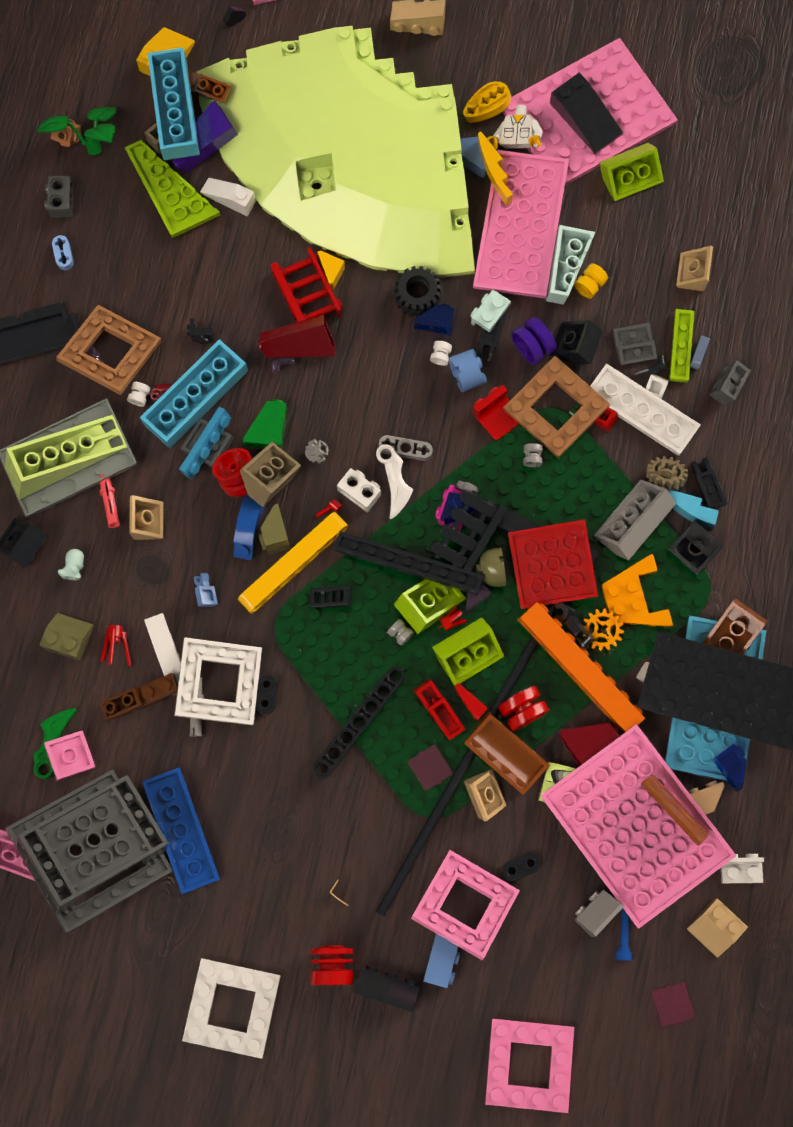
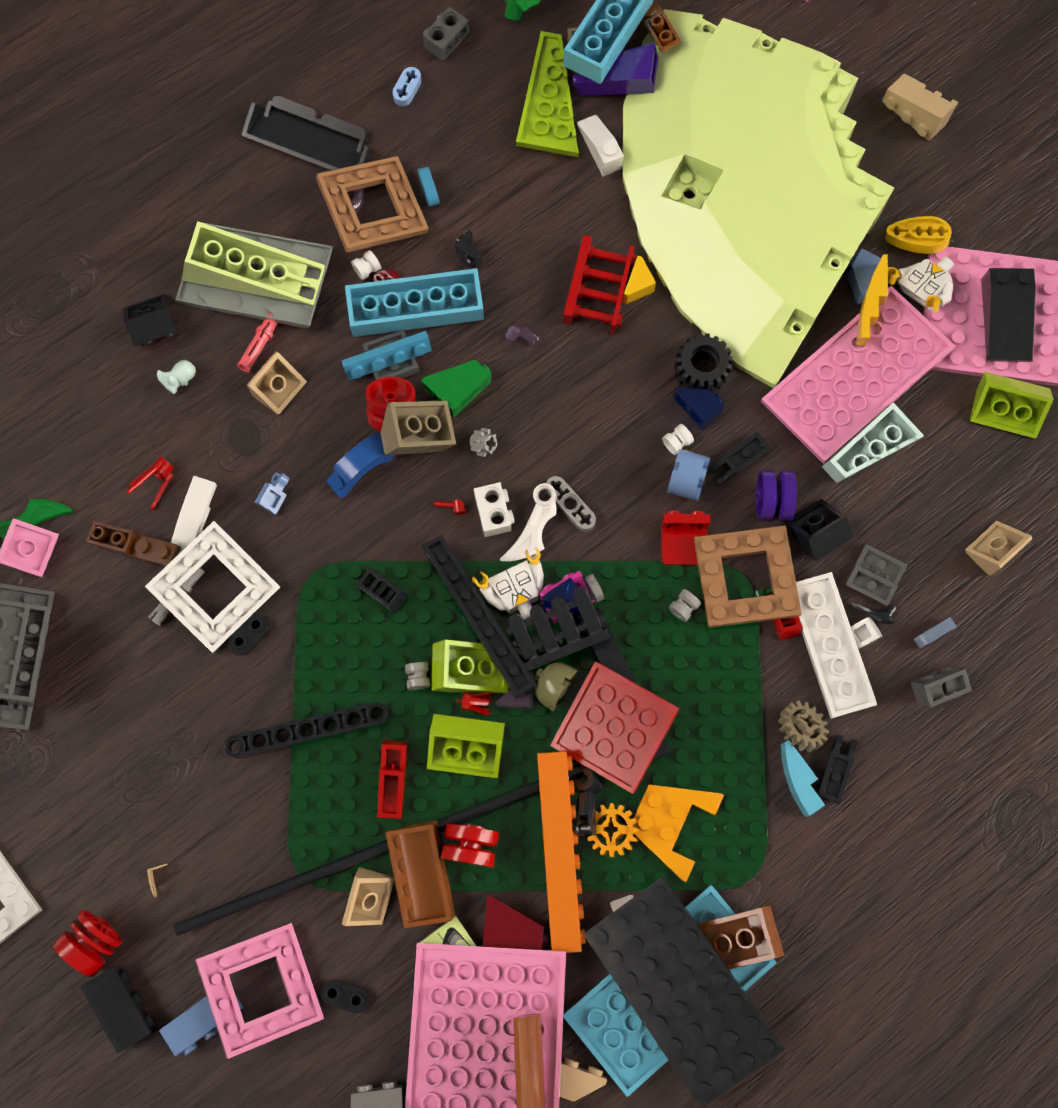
camera: 35 degrees right, 0 degrees up
(66, 636) = (117, 437): olive slope -> none
(136, 309) = (428, 186): none -> dark azure beam
(182, 829) = (66, 699): blue plate -> none
(273, 533) = (379, 487): olive slope -> none
(292, 562) = (375, 529): yellow beam -> none
(299, 339) = (553, 325): dark red slope -> none
(416, 526) = (514, 587): none -> white torso
(430, 767) = (339, 828): clear pink piece -> none
(474, 706) = (427, 800): red slope -> none
(490, 311) = (758, 435): light aqua bracket -> none
(593, 278) = (885, 480): yellow wheel -> none
(635, 519) = (734, 746): light grey slope -> none
(681, 345) = (922, 612): lime plate -> none
(696, 547) = (773, 822): black slope -> none
(732, 766) = (629, 1071): clear blue slope -> none

